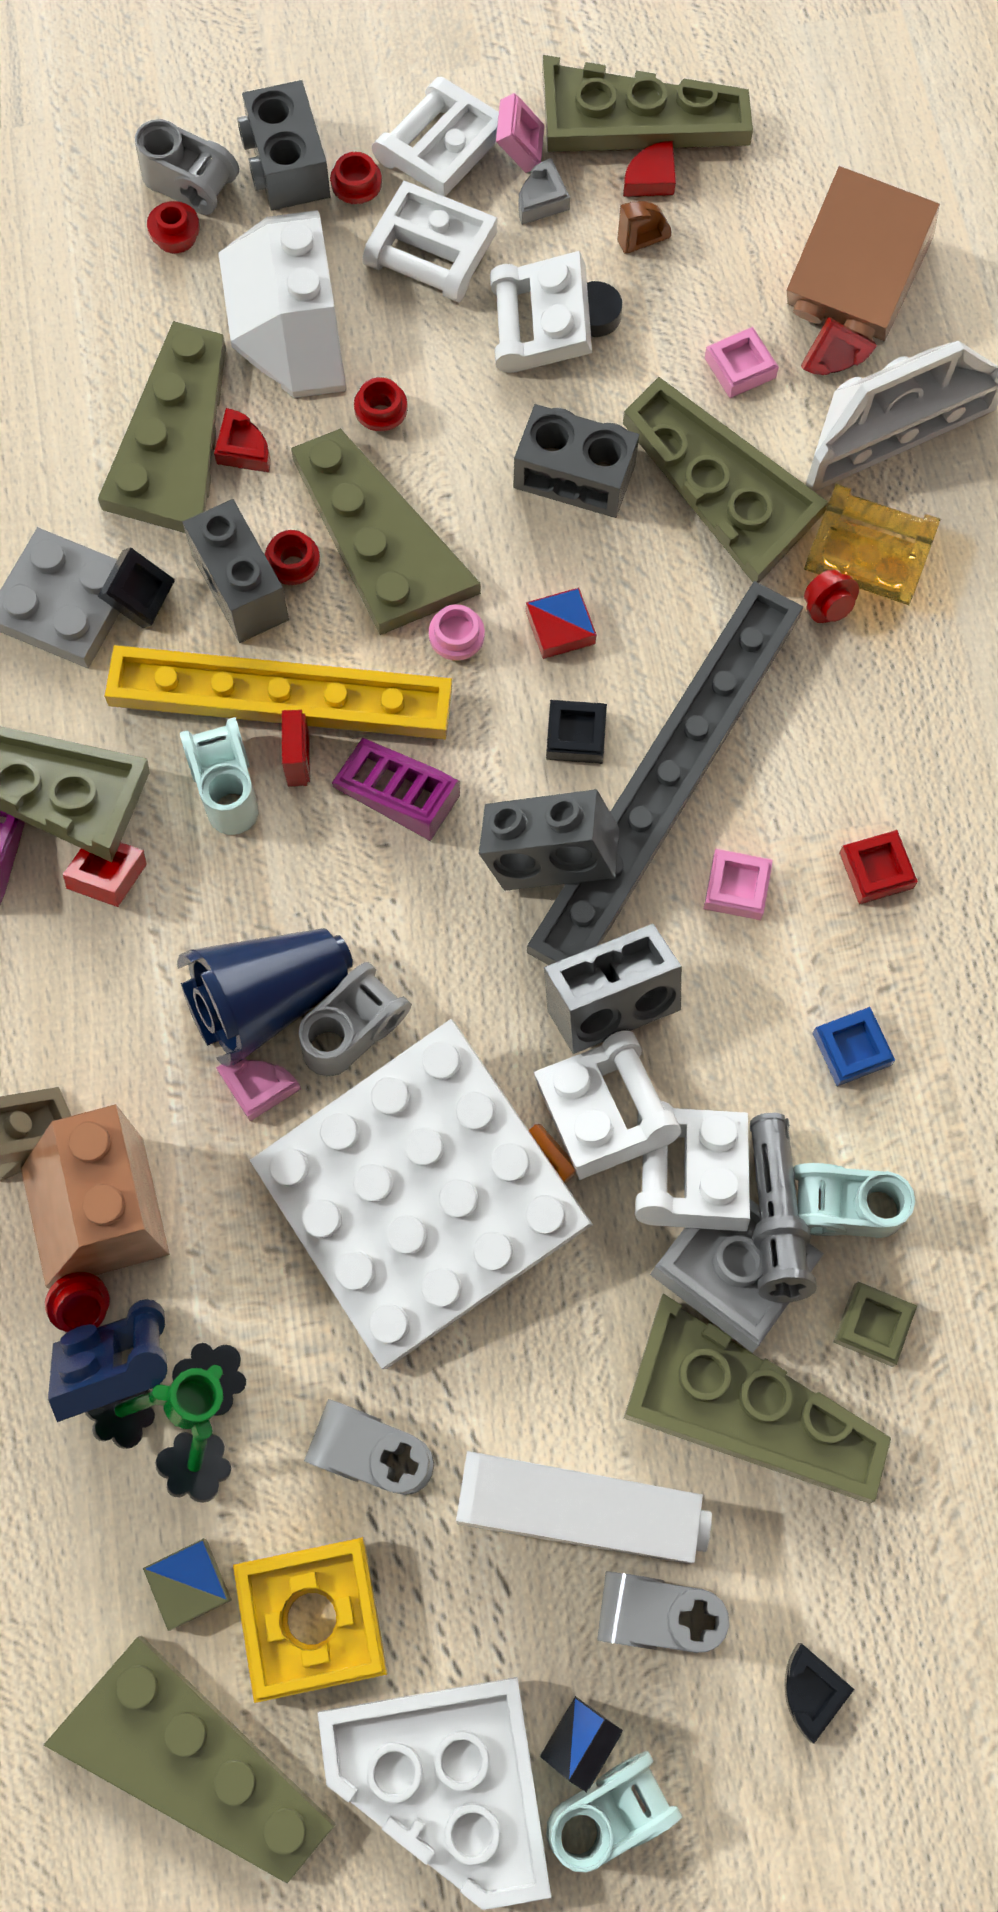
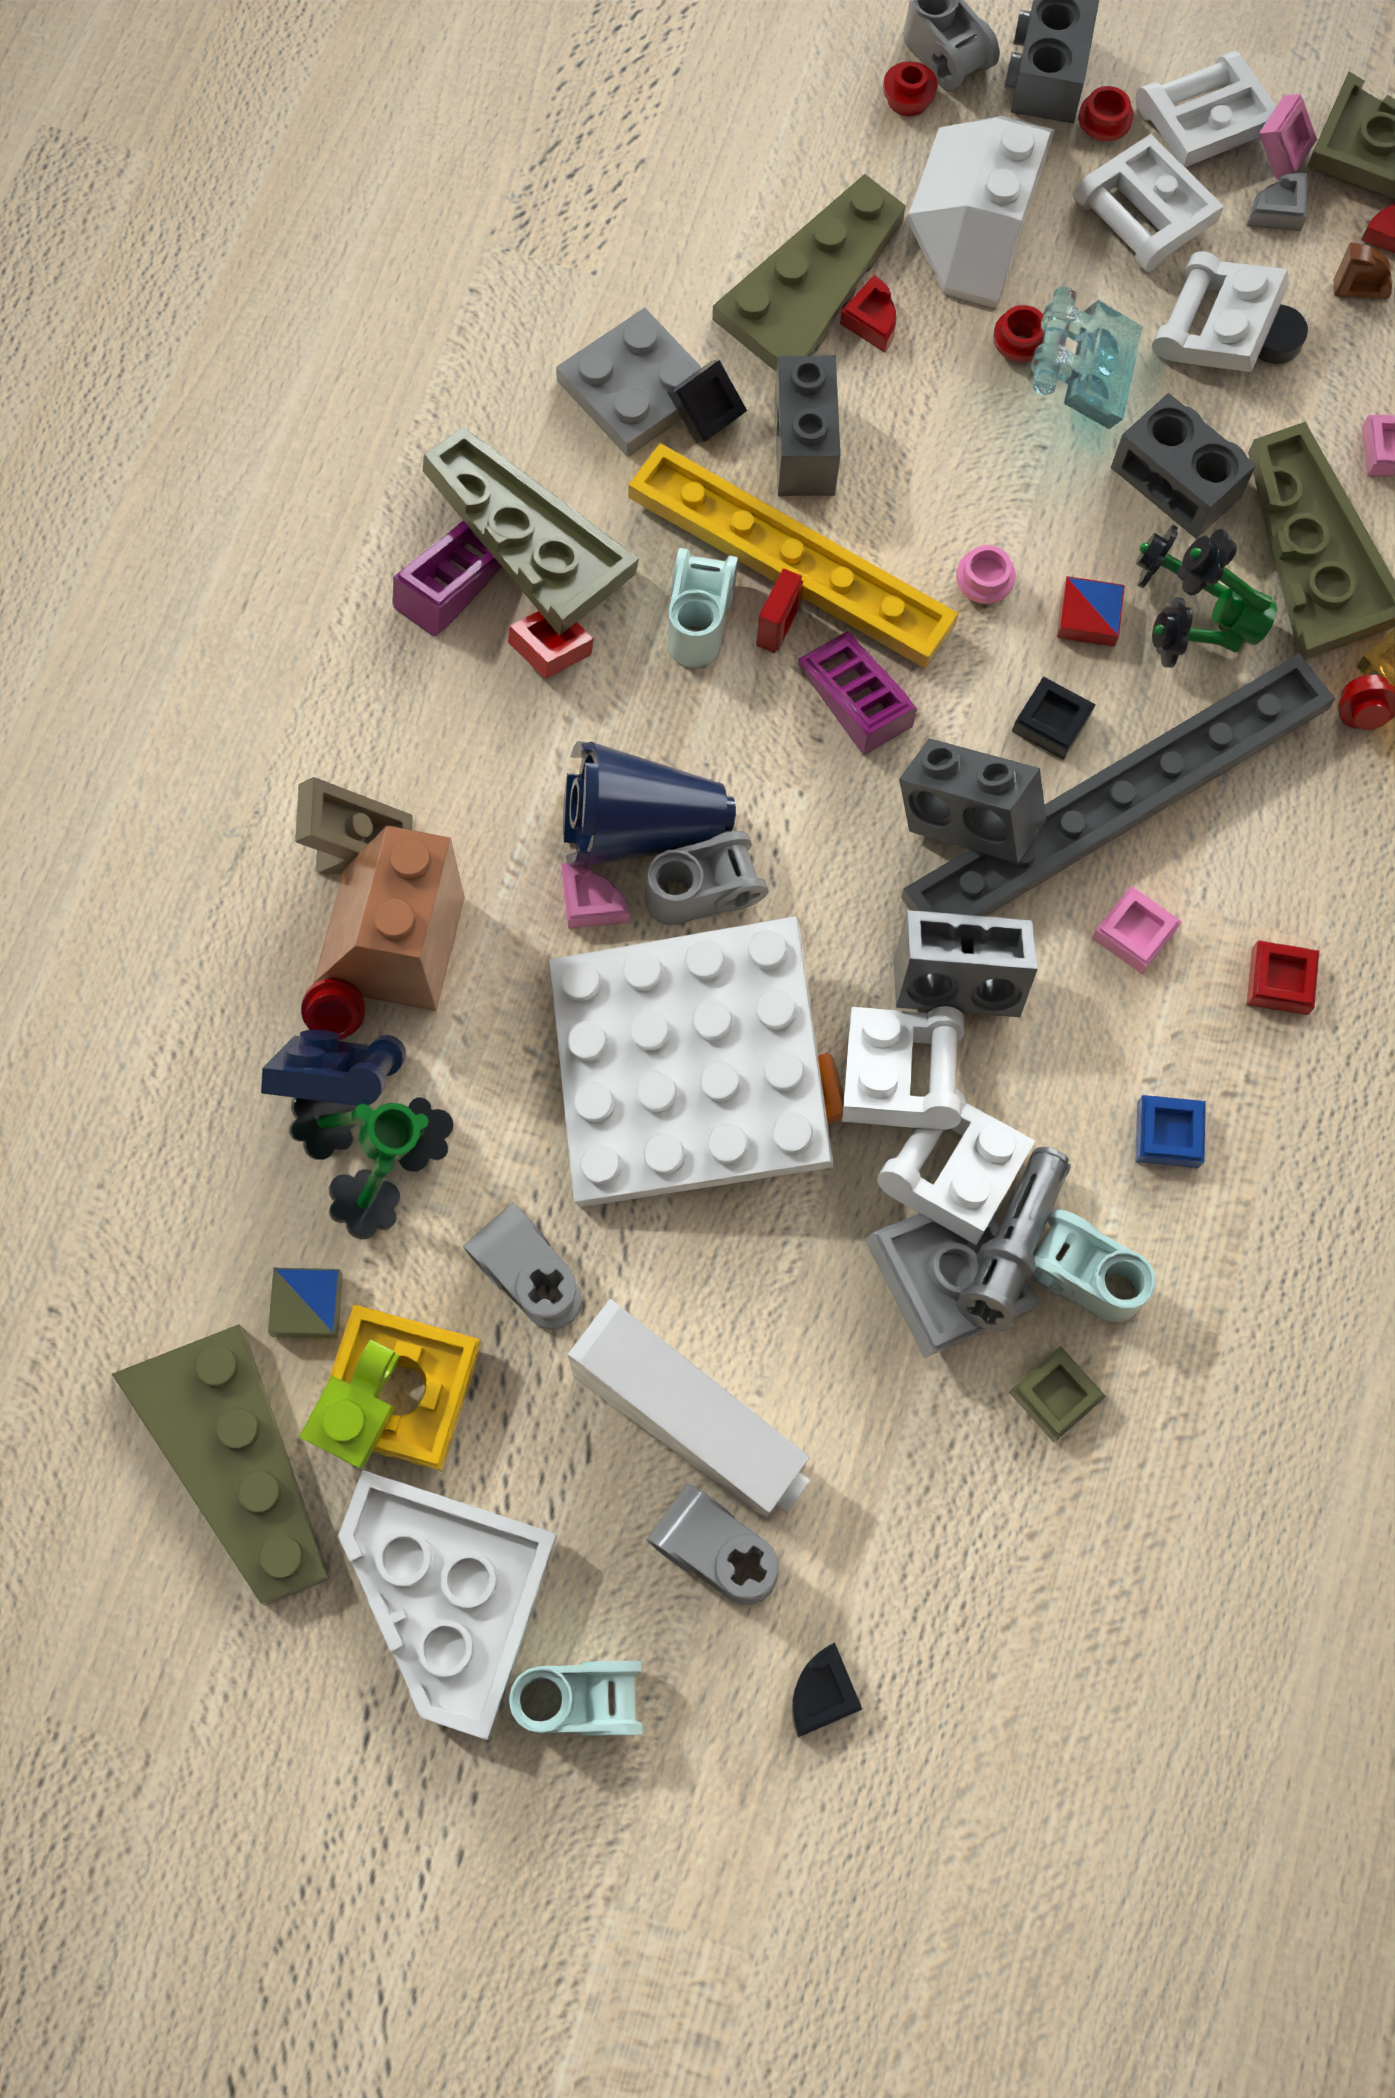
camera: 25 degrees right, 0 degrees up
(283, 1670) = (350, 1415): none -> lime plate
(293, 544) = (866, 425): red plate -> none
(383, 541) = (959, 459): olive wing -> none
(462, 399) = (1103, 359): none -> clear light blue plate
(581, 1744) = (584, 1622): black tile -> none
(685, 566) = (1239, 611): none -> plant
(747, 1407) = (880, 1390): olive wing -> none

